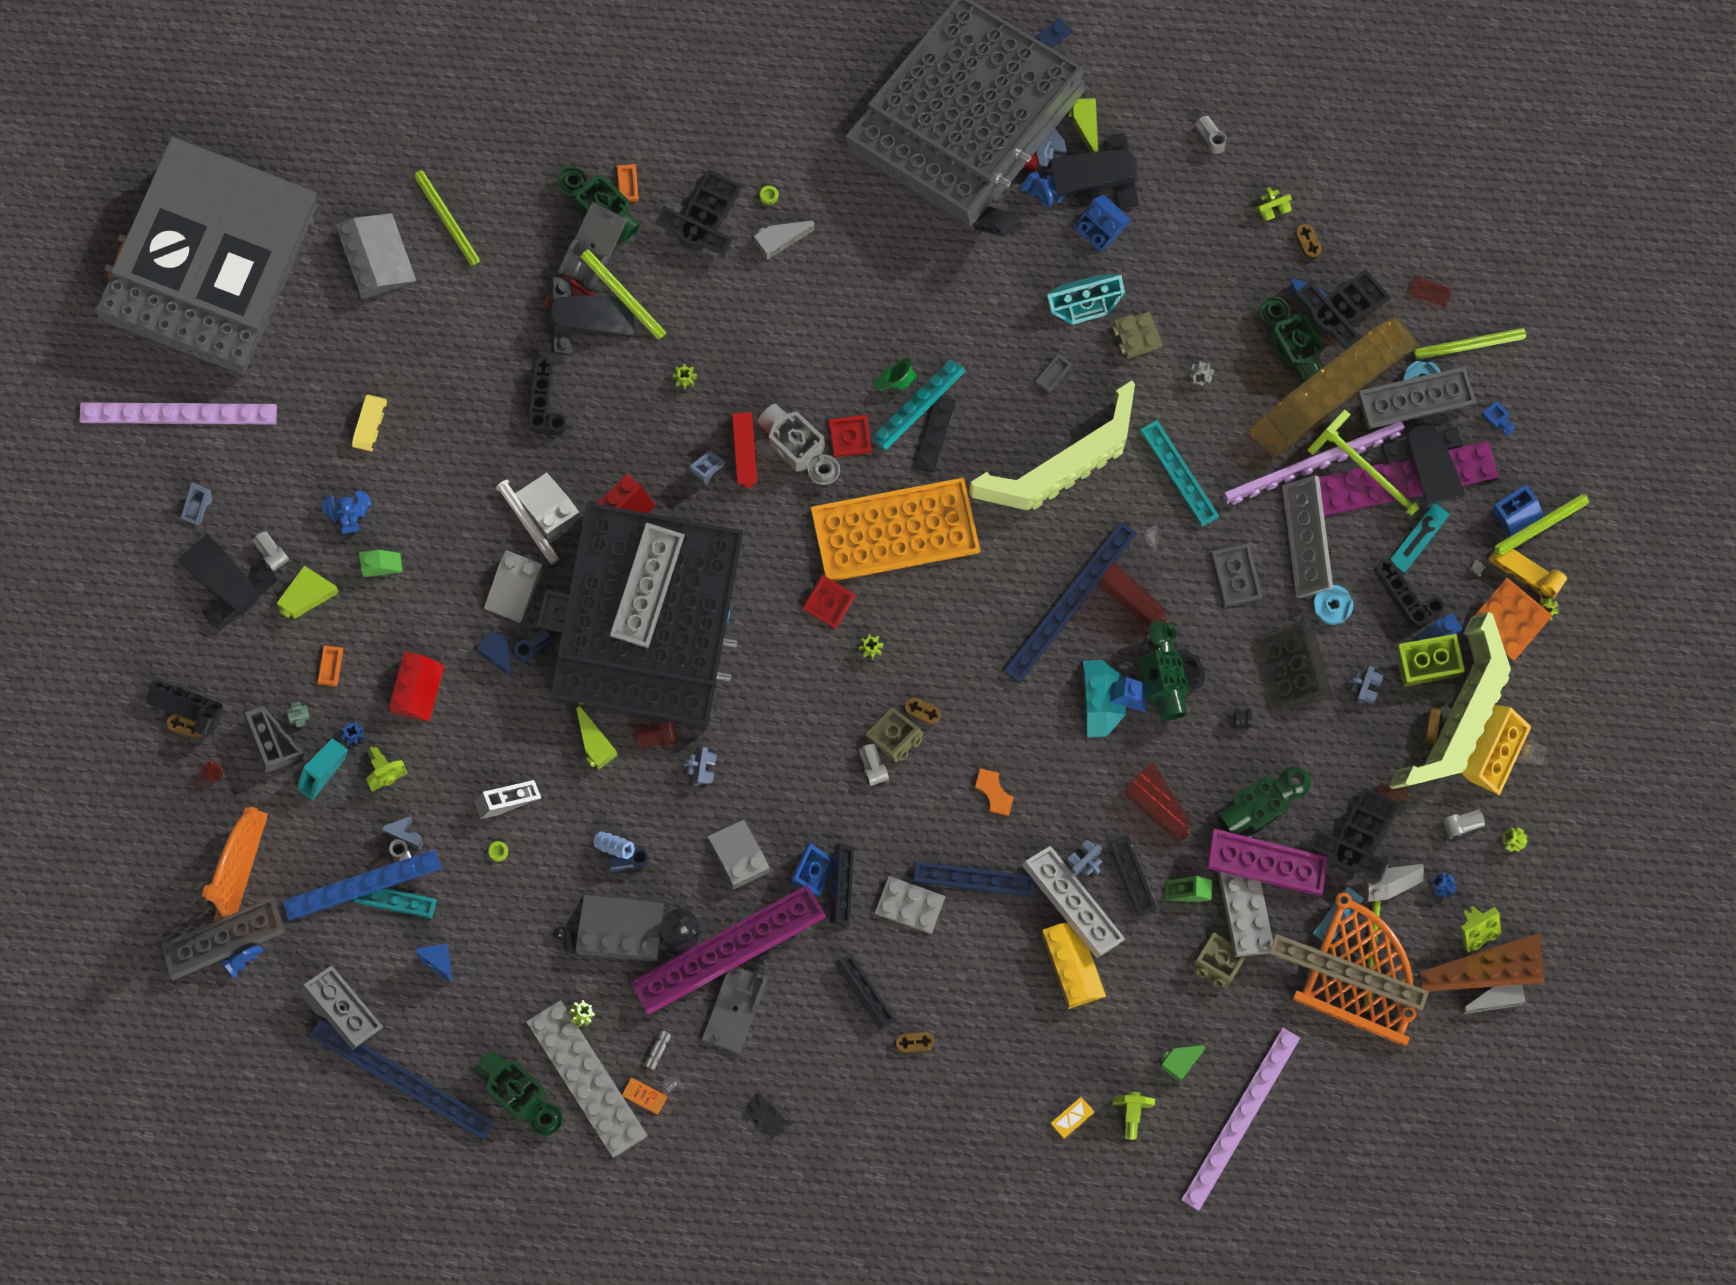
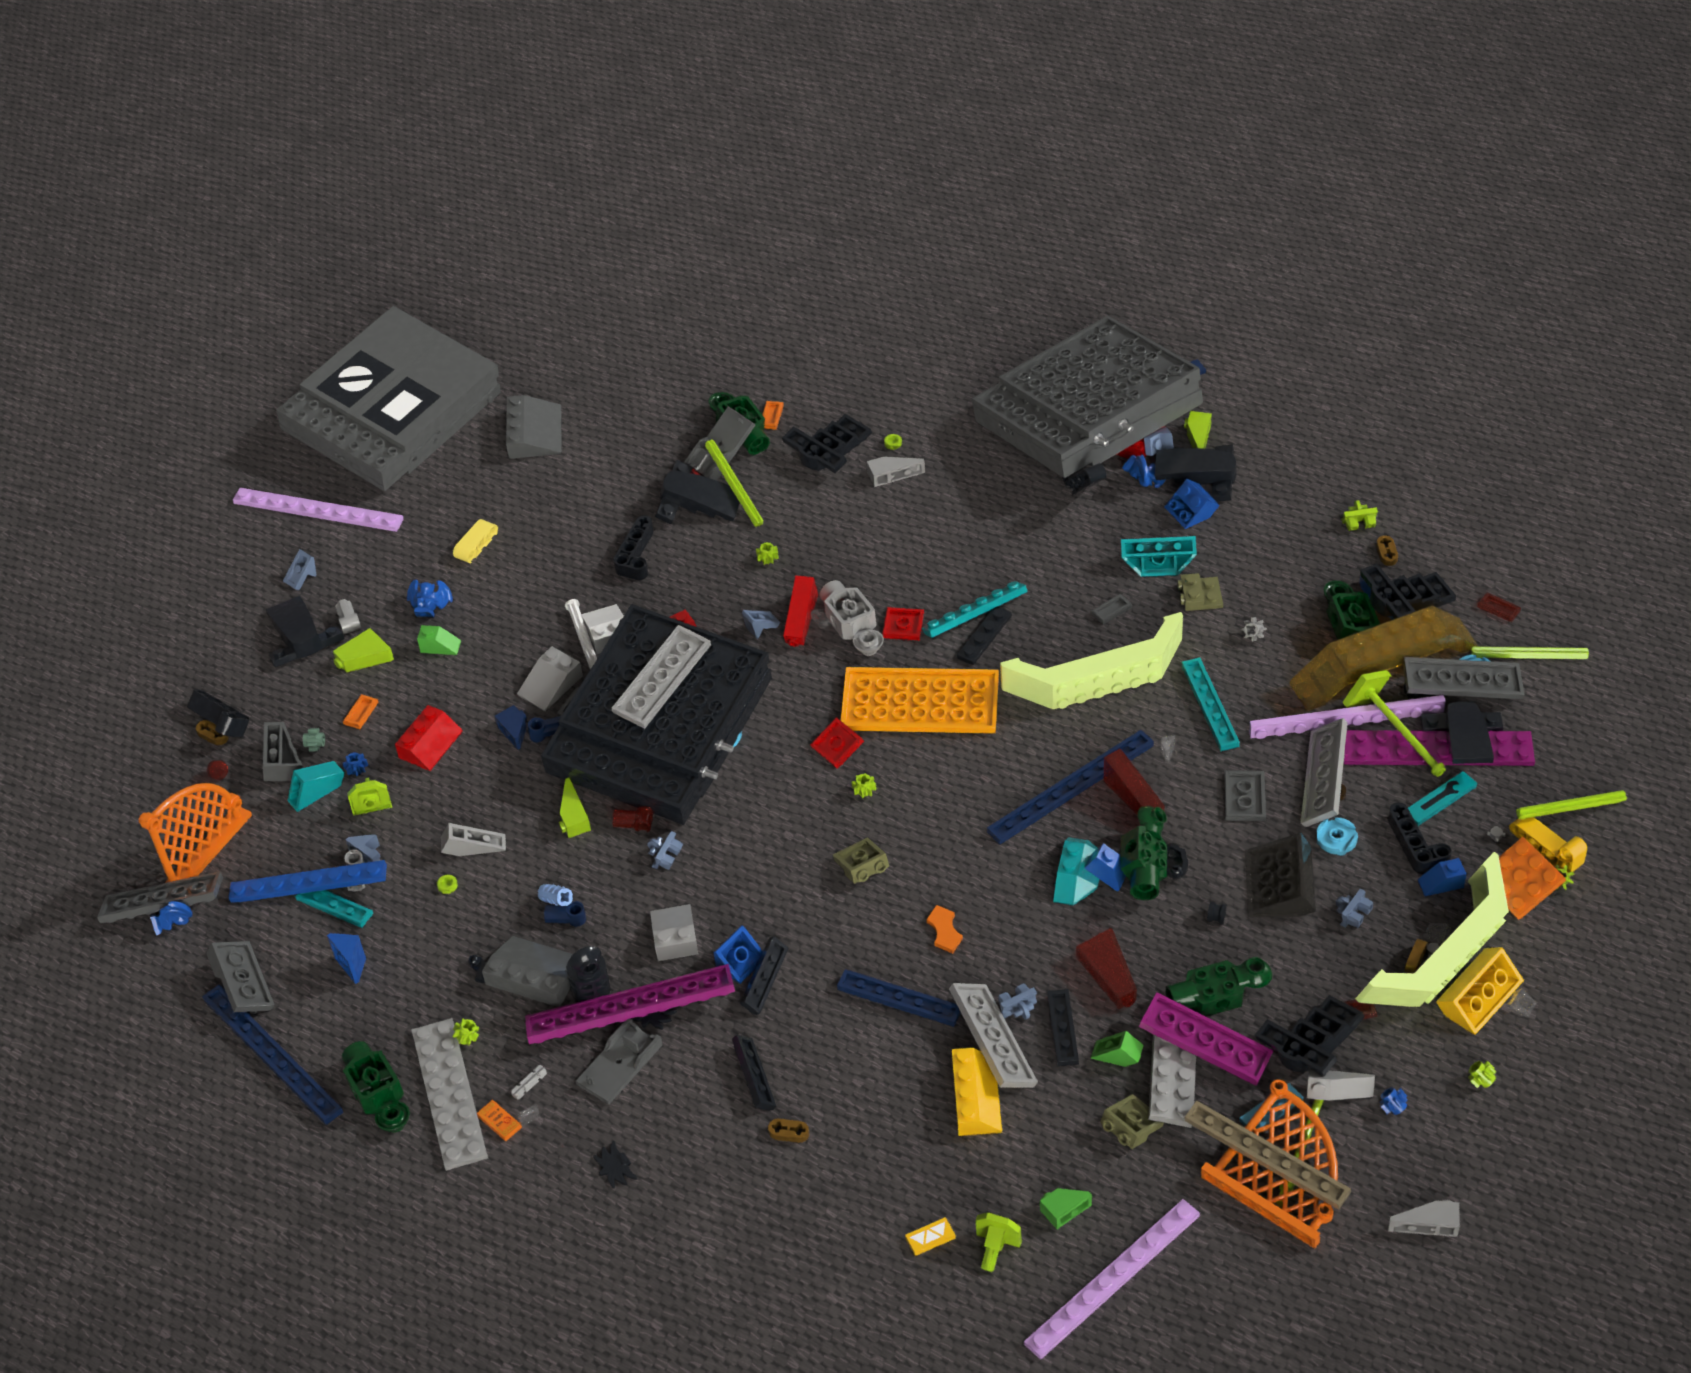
camera: 25 degrees right, 25 degrees down
(447, 218) = (605, 414): lime axle -> none
(873, 766) = (831, 883): light grey piece -> none
(897, 376) = (965, 586): green piece -> none
(910, 905) = (827, 1008): light grey plate -> none
(924, 706) = (896, 849): pearl gold beam -> none
(1210, 134) = (1314, 459): light grey piece -> none
(1430, 660) = (1426, 897): lime slope -> none
(1464, 823) = (1423, 1051): light grey piece -> none
(1480, 928) = (1424, 1147): lime plate -> none
(1498, 416) = (1545, 712): blue plate -> none
(1503, 965) = (1443, 1188): dark orange wing -> none
(1517, 511) = (1547, 787): blue slope -> none

